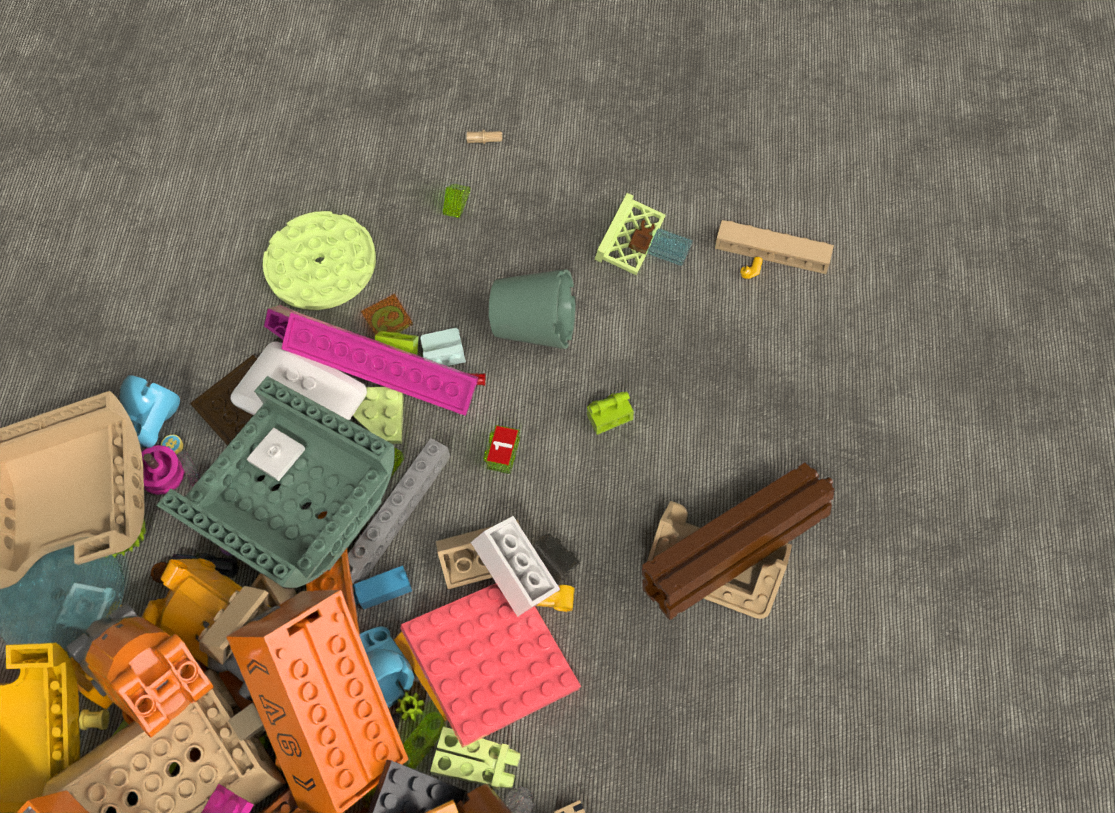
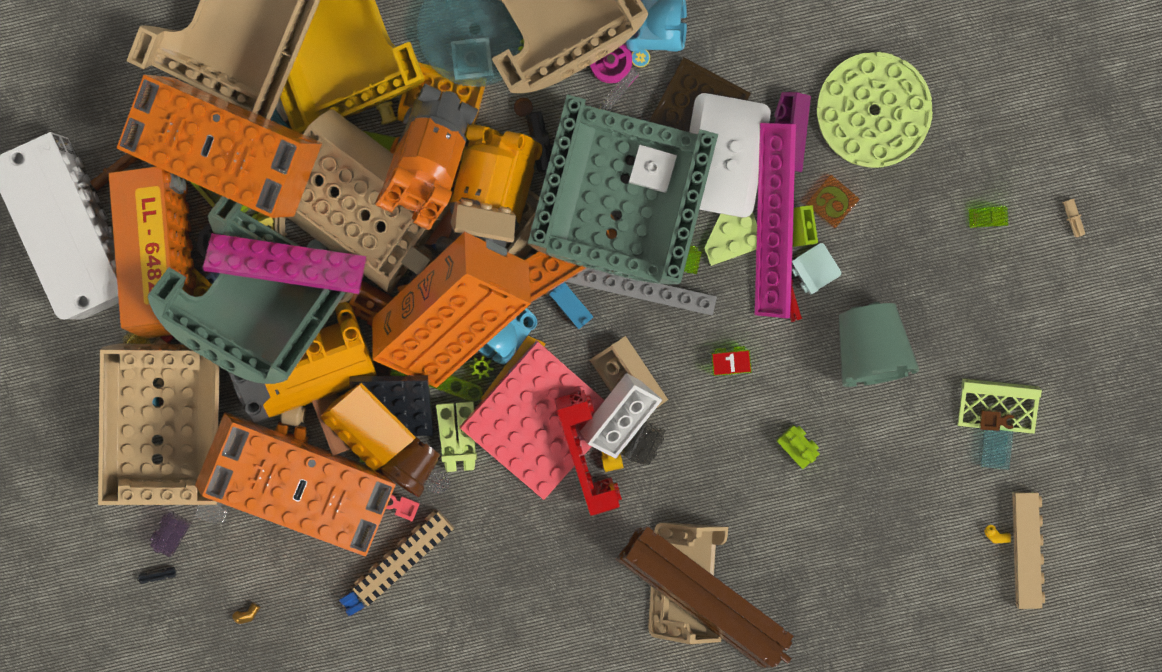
camera: 70 degrees right, 25 degrees up
(592, 624) = (600, 495): none -> red plate

